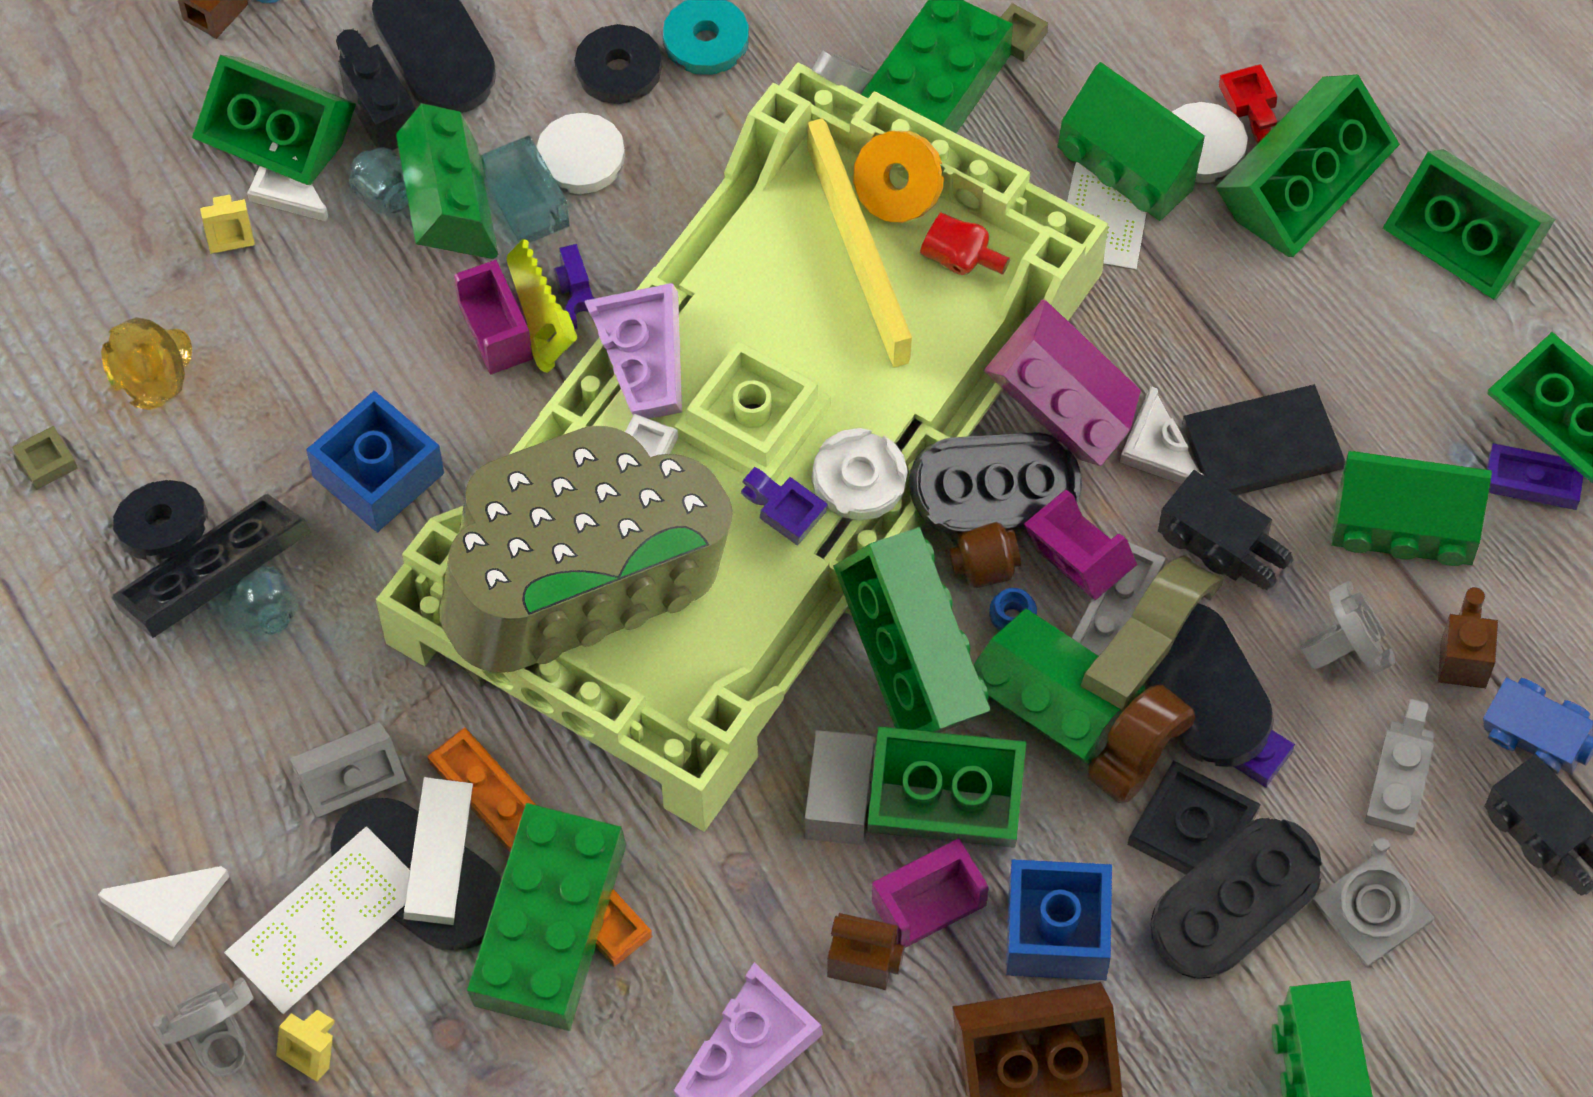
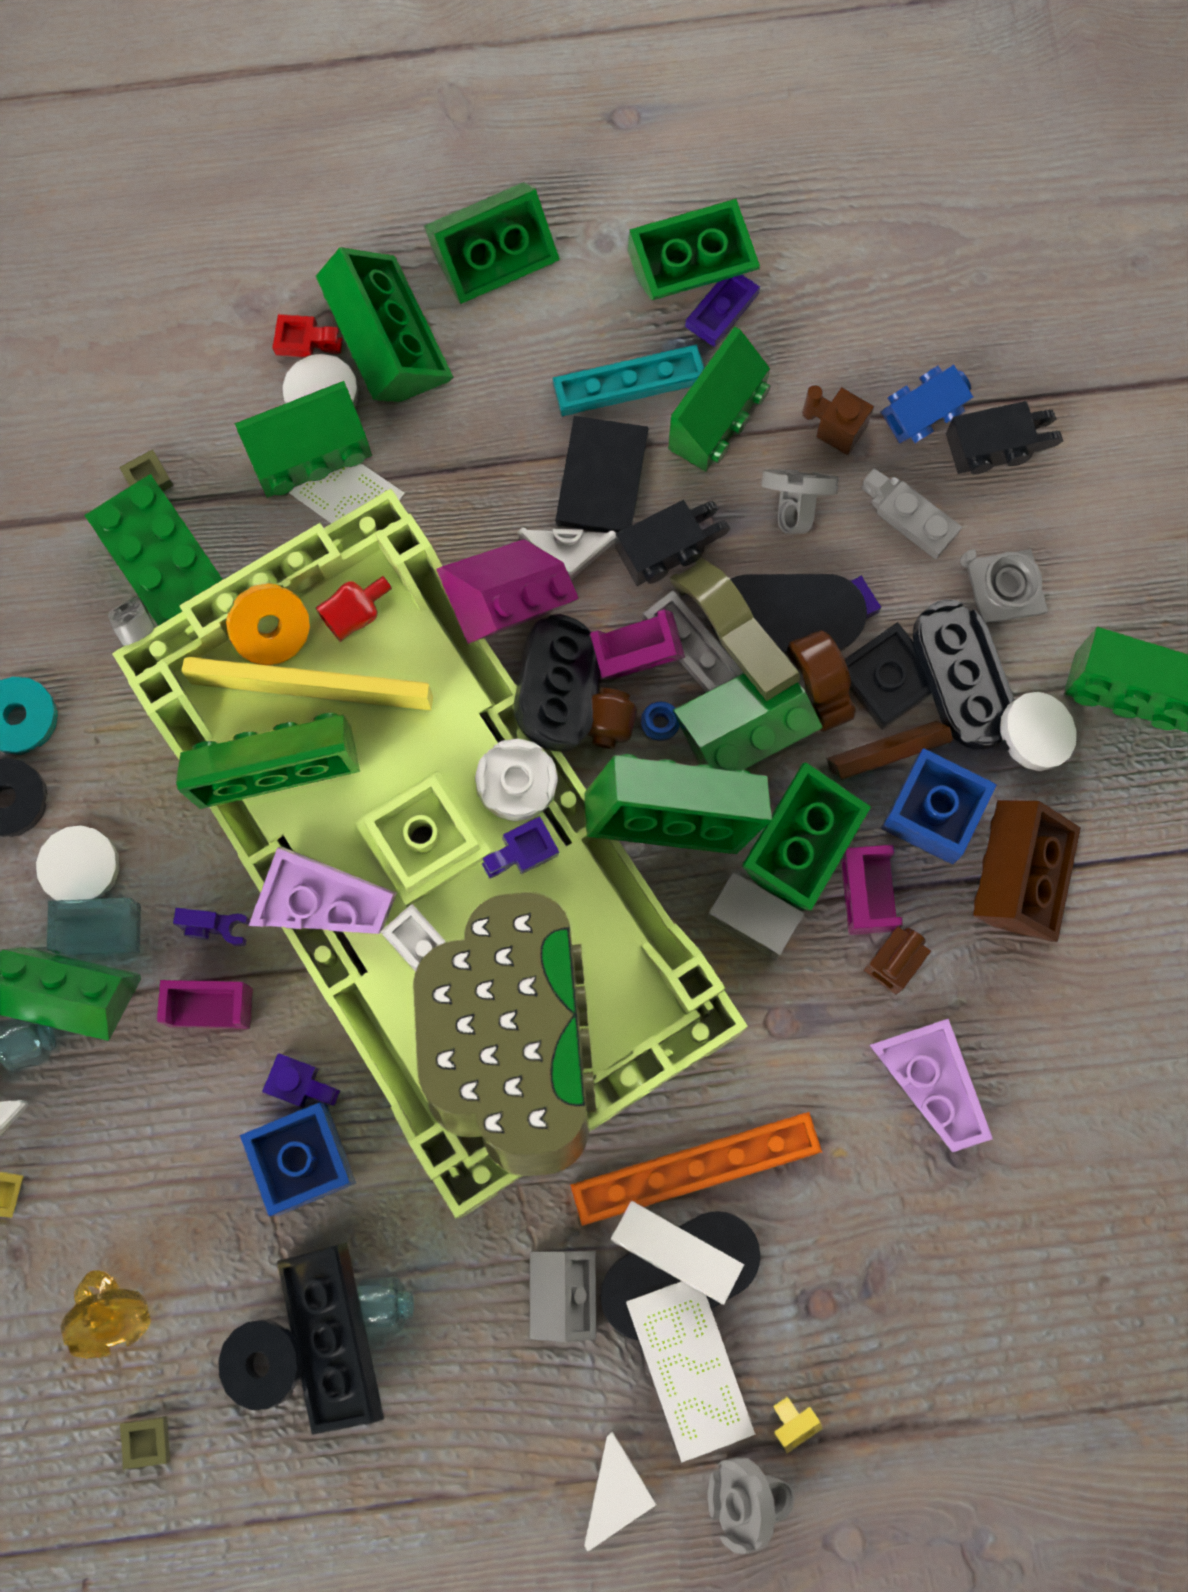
camera: 65 degrees left, 15 degrees up
(456, 433) = (296, 1081): none -> dark purple plate
(540, 308) = (212, 962): neon yellow piece -> none
(547, 917) = (775, 1189): green brick -> none
(757, 239) = (267, 761): none -> green slope
(1100, 849) = (889, 749): none -> reddish brown tile
(1209, 1000) = (1038, 731): none -> white tile
(1381, 411) = (627, 380): none -> teal tile

